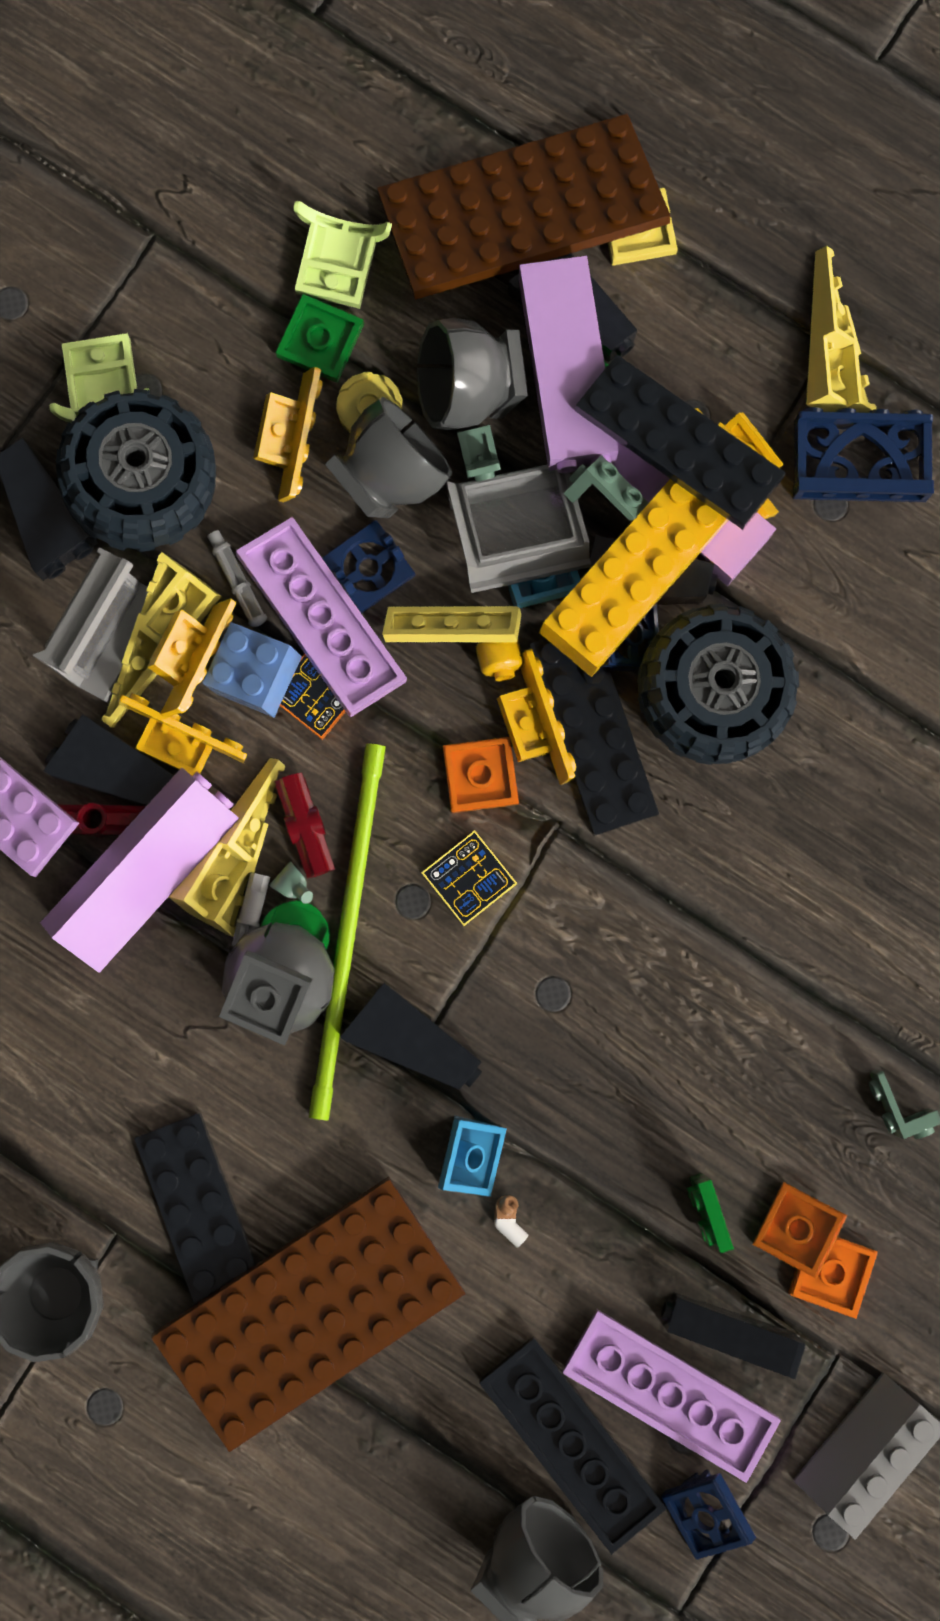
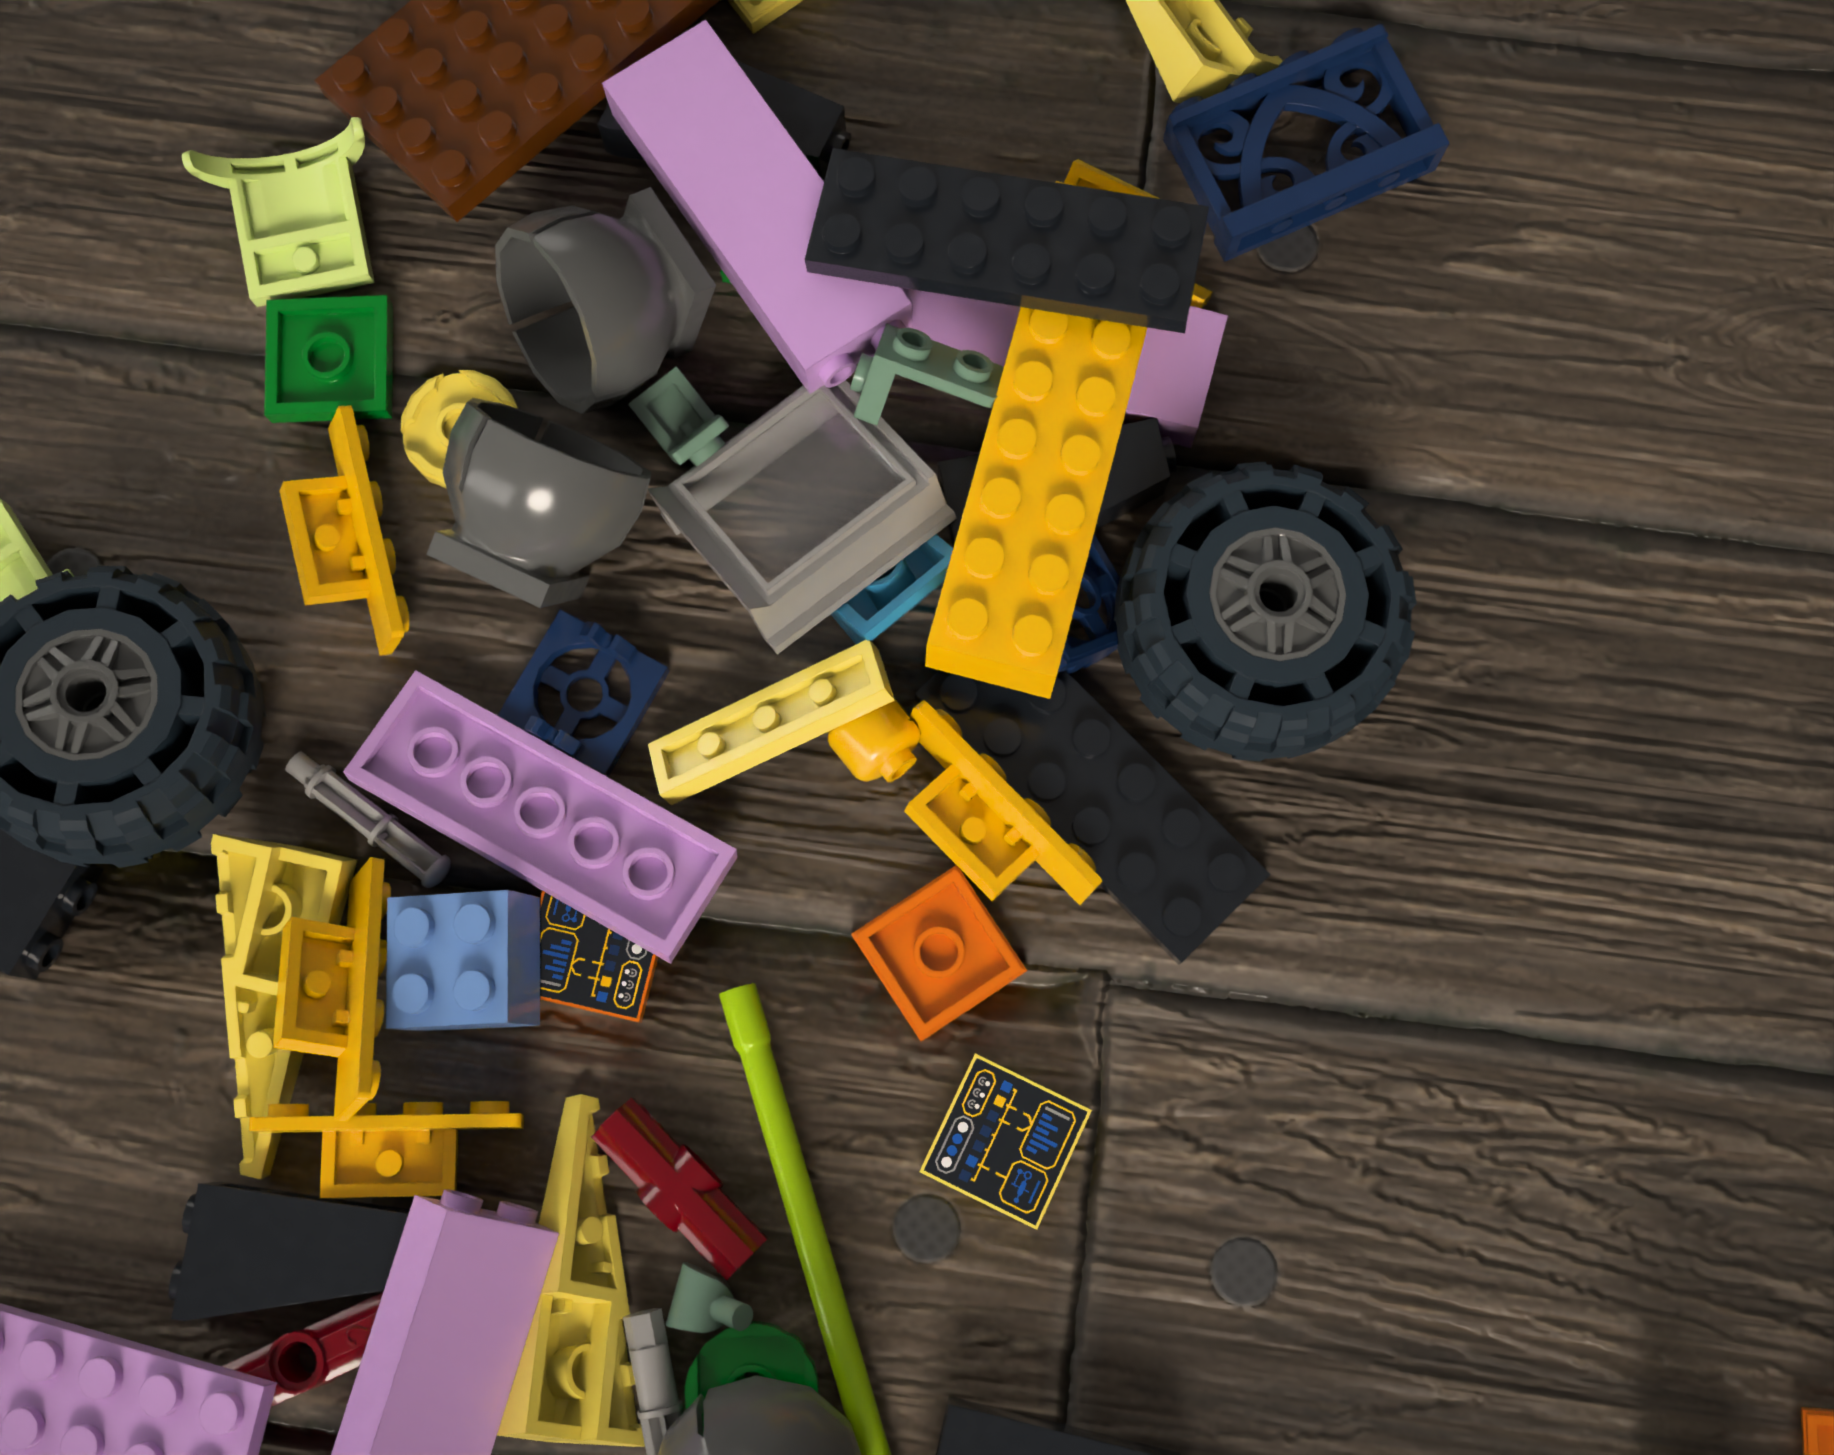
camera: 20 degrees left, 5 degrees down
(96, 627) = (150, 1019): light grey piece -> none

